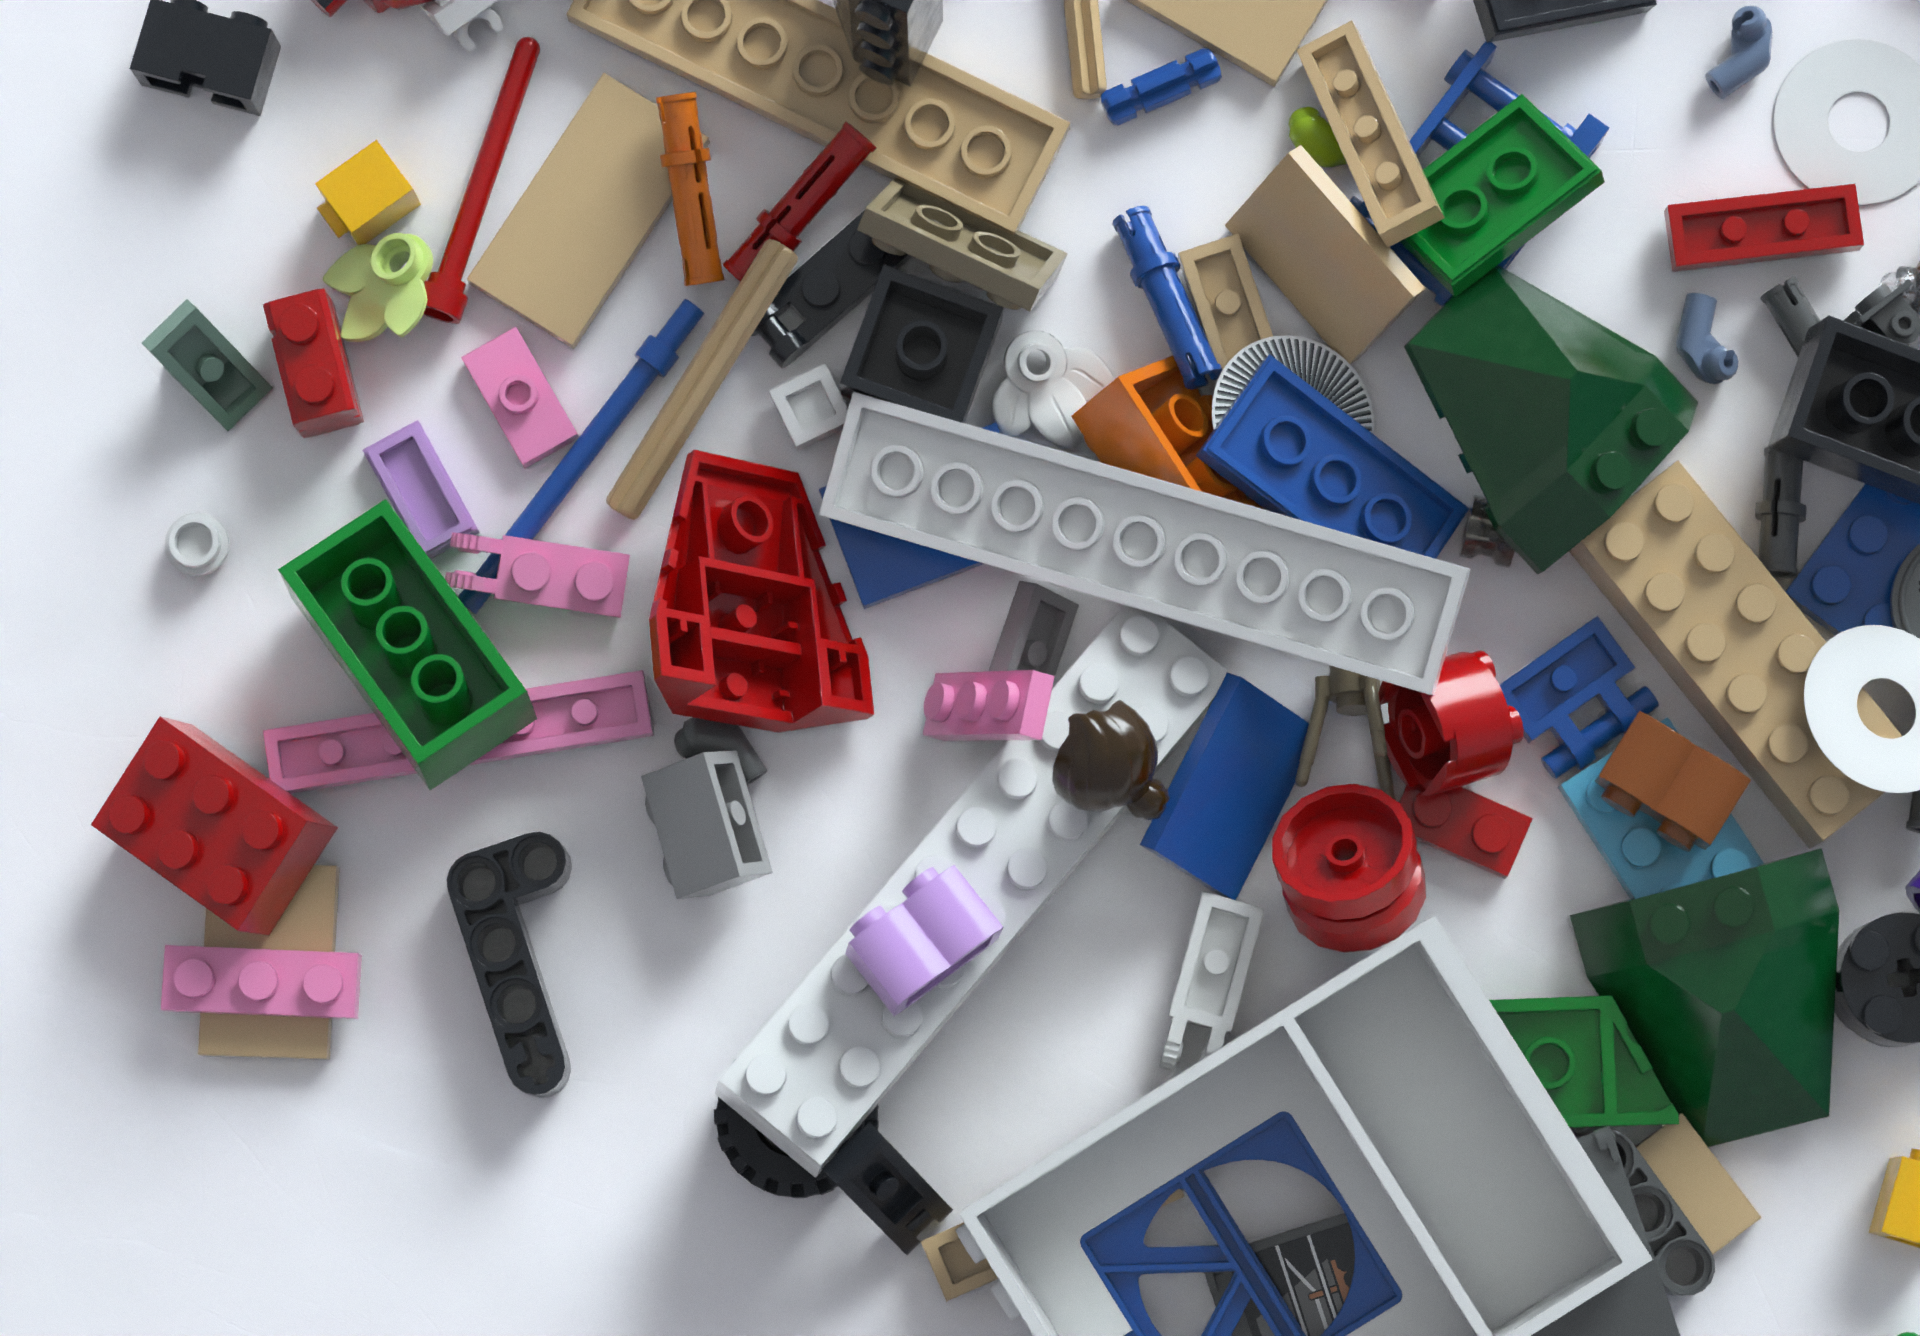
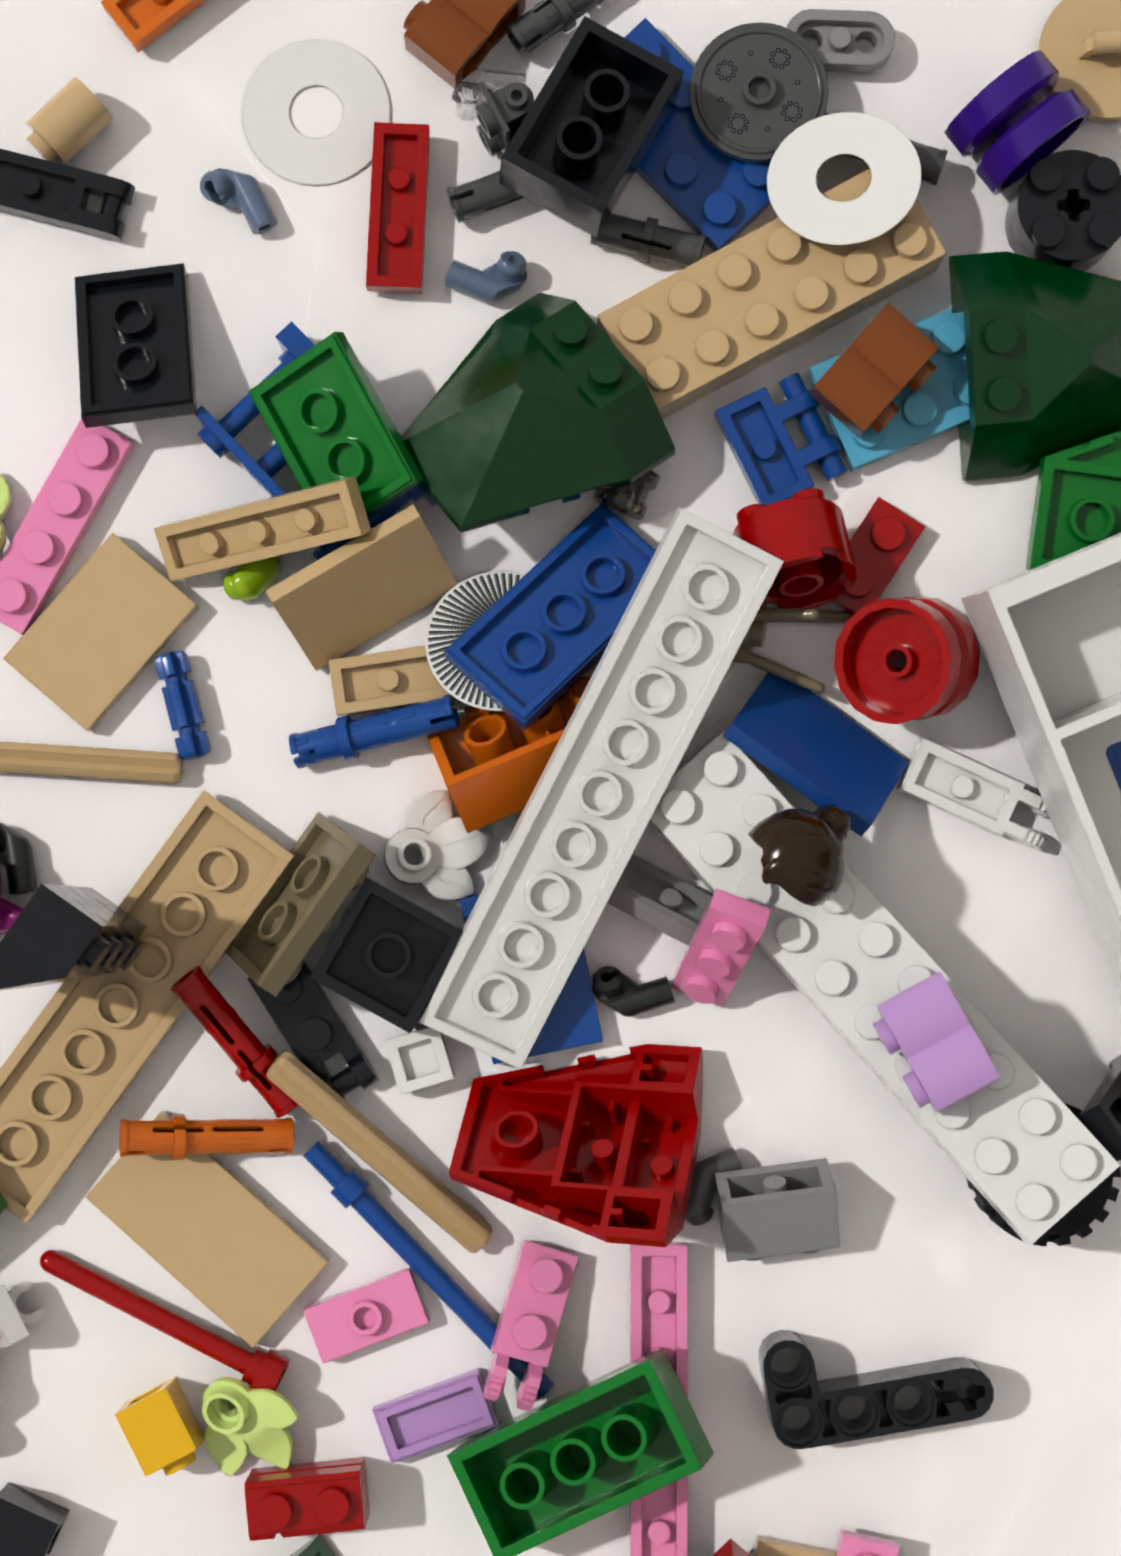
camera: 85 degrees left, 5 degrees up
(918, 626) = (626, 995): none -> pearl dark grey arm

